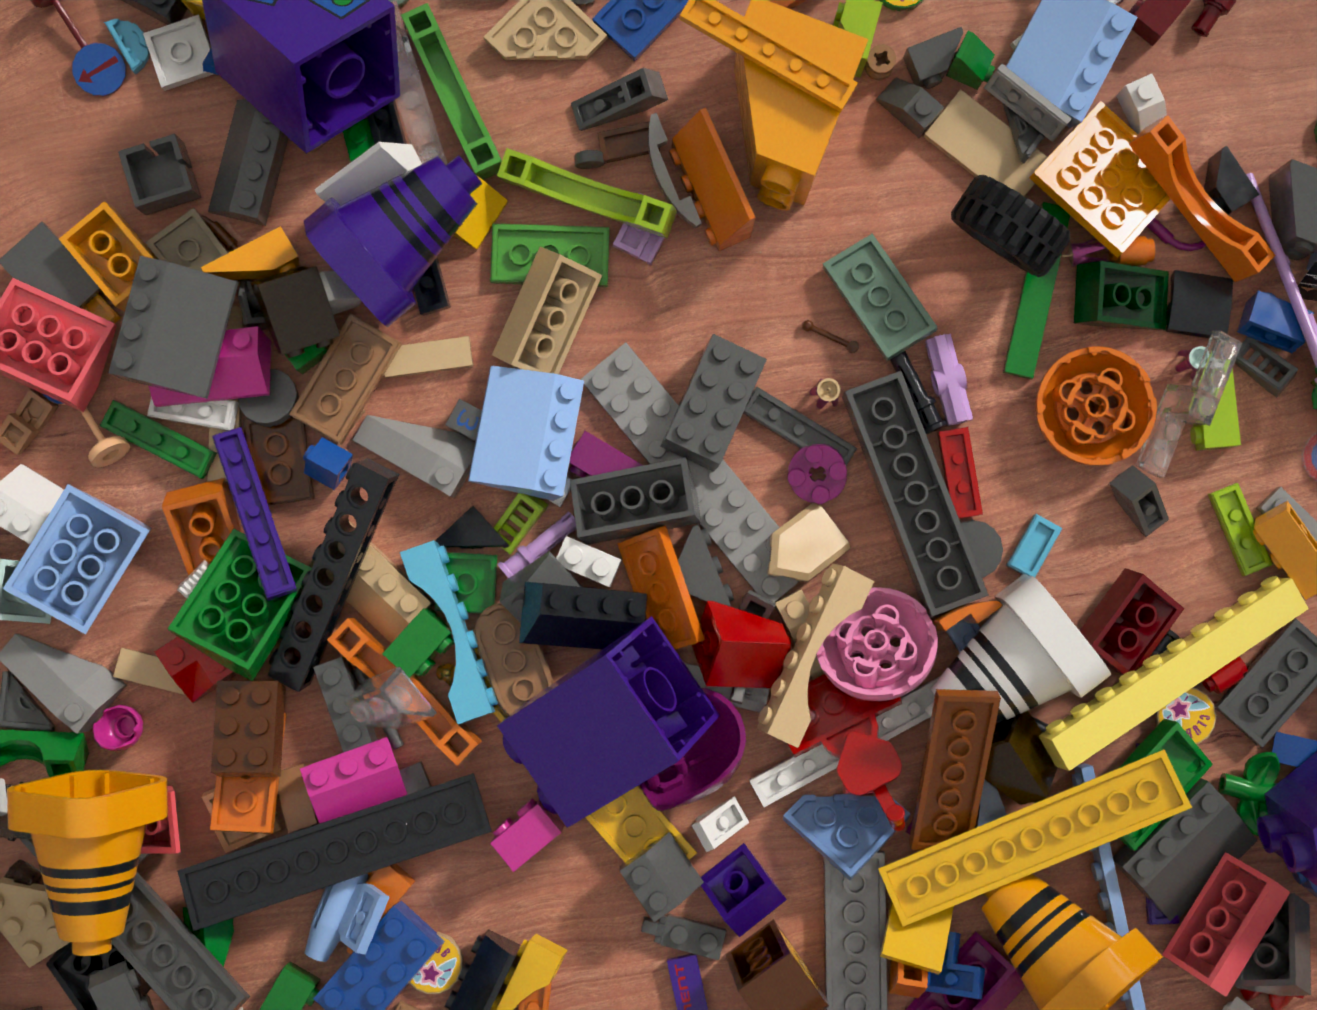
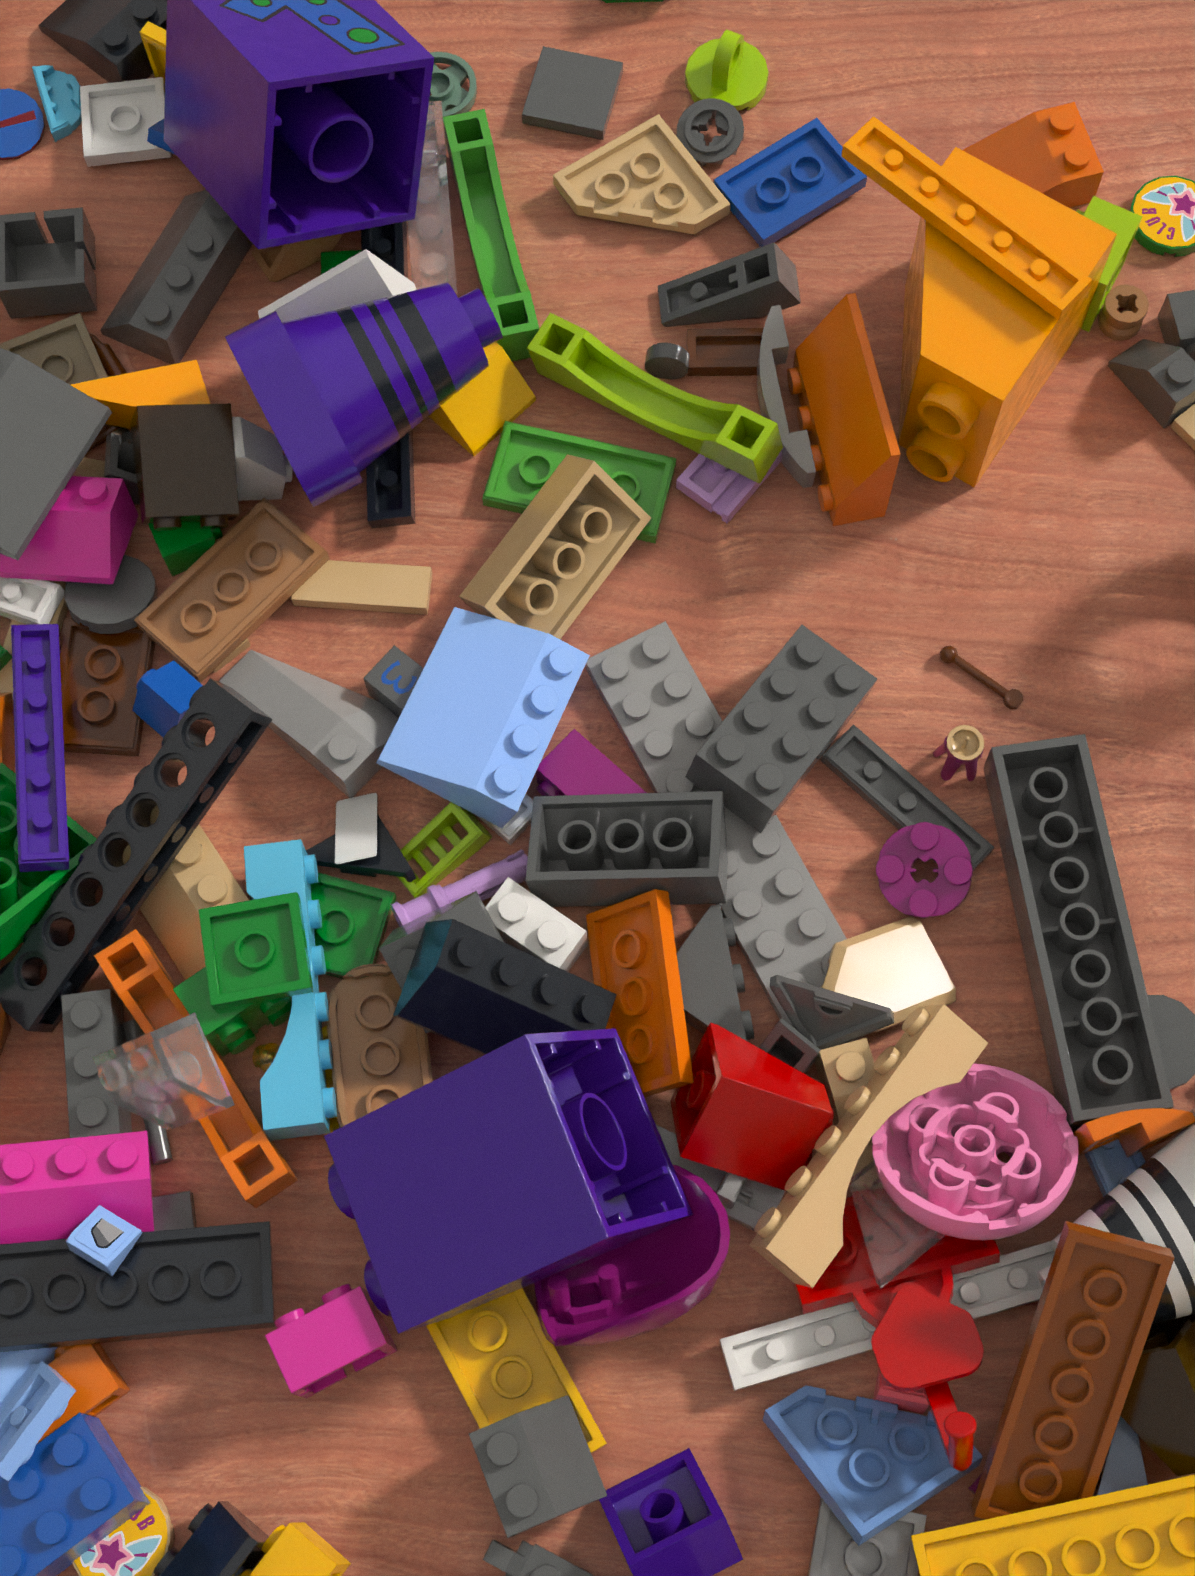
camera: 15 degrees right, 15 degrees down
(381, 807) = (103, 1239): none -> light blue slope
(426, 621) = (255, 950): none -> green tile
(464, 520) = (356, 828): none -> white sticker
(719, 823) = (656, 1401): white slope -> none
(776, 582) = (828, 1016): none -> dark grey tile
(835, 704) = (888, 1232): none -> clear wing
(879, 297) = (1069, 630): sand green plate -> none
(924, 404) = (1114, 800): black pin -> none
(948, 379) = (1157, 773): lavender piece -> none
(960, 471) = (1154, 914): red plate -> none

